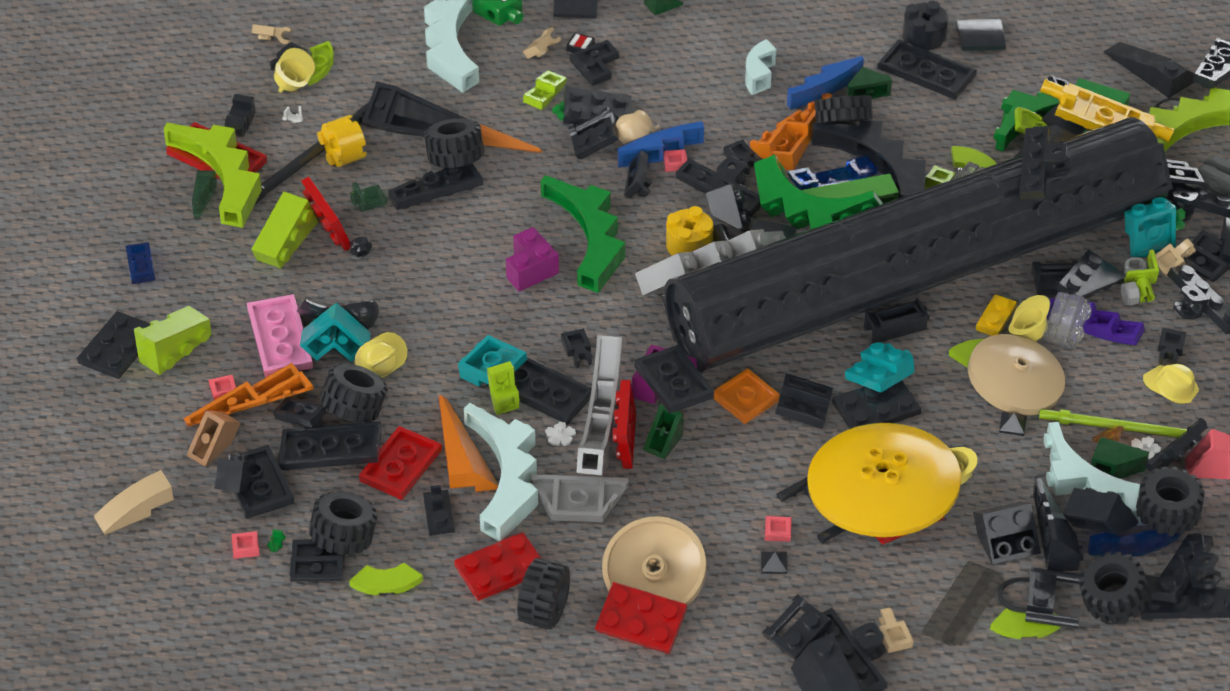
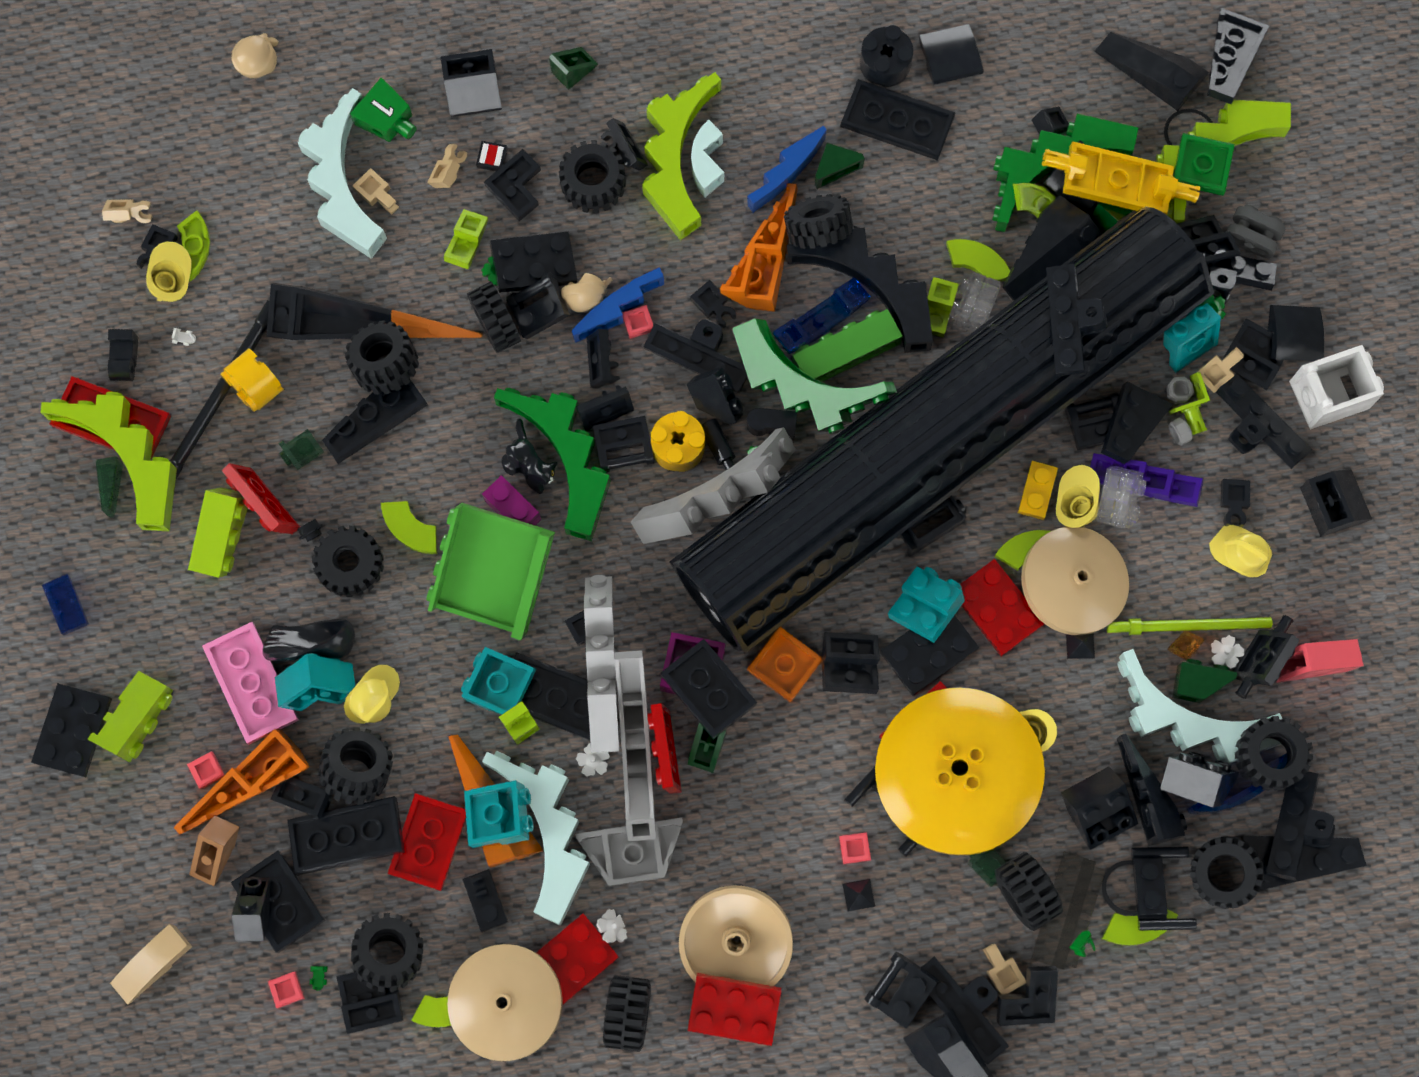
camera: 10 degrees left, 30 degrees up
(386, 281) = (362, 575): none -> black tyre
(436, 577) = (531, 1009): none -> tan dish
(447, 263) = (408, 529): none -> lime tile
(468, 438) = (498, 814): none -> teal plate
(478, 47) = (373, 189): none -> tan plate
(506, 284) = (490, 569): none -> bright green panel
(546, 547) = (612, 927): none -> white plant
(554, 129) = (494, 317): none -> black tyre
(556, 228) = (523, 459): none -> black animal
(581, 363) = (601, 664): none -> light grey arch
(633, 205) = (605, 408): none -> black plate
(643, 226) = (623, 435): none -> black plate
(660, 62) = (588, 157): none -> black tyre
(691, 49) = (625, 143): none -> black plate
(733, 45) = (672, 121): none -> lime arch
(895, 556) = (985, 864): none -> clear green bracket
(918, 658) = (1035, 1005): none -> black plate
(928, 567) = (1029, 891): none -> black tyre
(945, 387) = (998, 608): none -> red plate
(966, 622) = (1080, 942): none -> green piece
(1185, 119) = (1204, 163): none -> green tile

